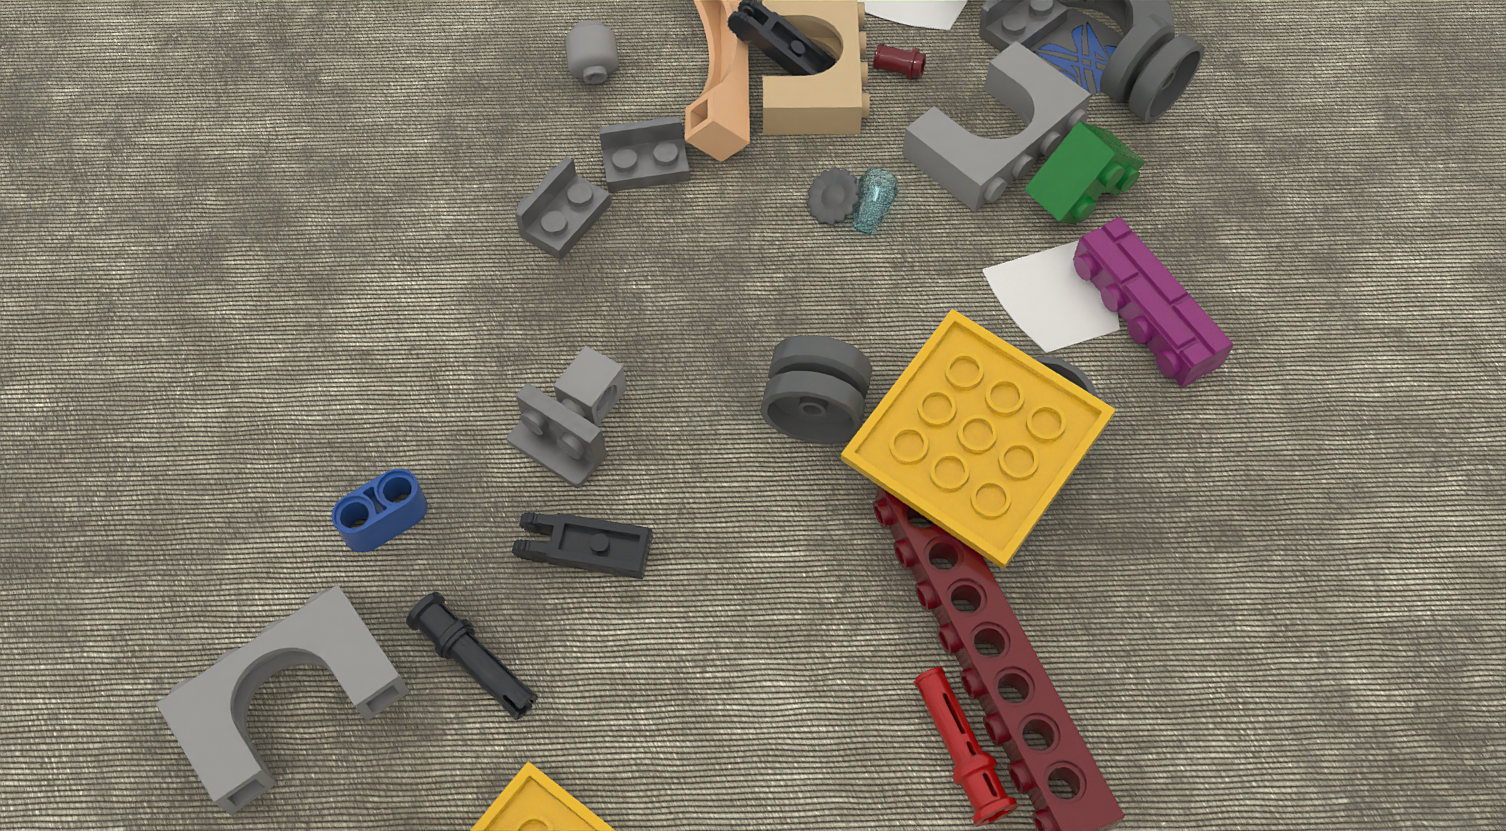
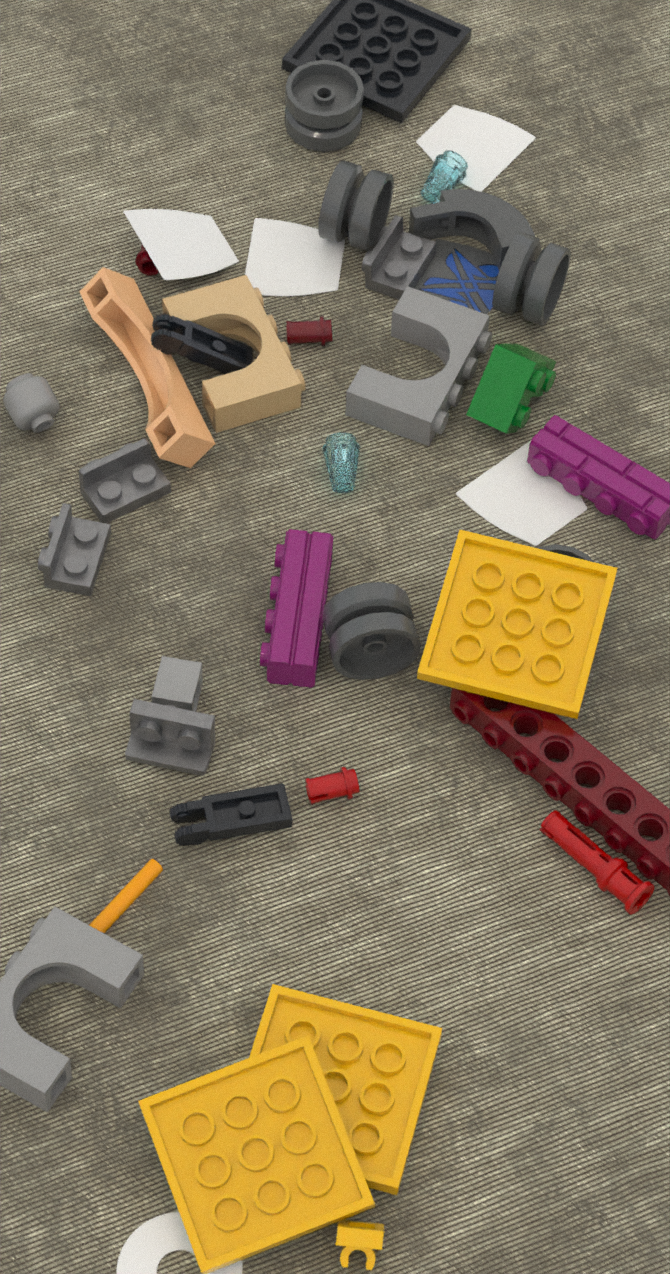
camera: 25 degrees left, 5 degrees down
(376, 503) = (49, 843): blue beam -> none
(448, 589) = (127, 896): none -> light orange bar
(457, 641) = (166, 920): black pin -> none
(704, 548) = (332, 786): none -> red pin
(743, 355) = (299, 608): none -> magenta brick
(833, 196) = (306, 468): dark grey piece -> none

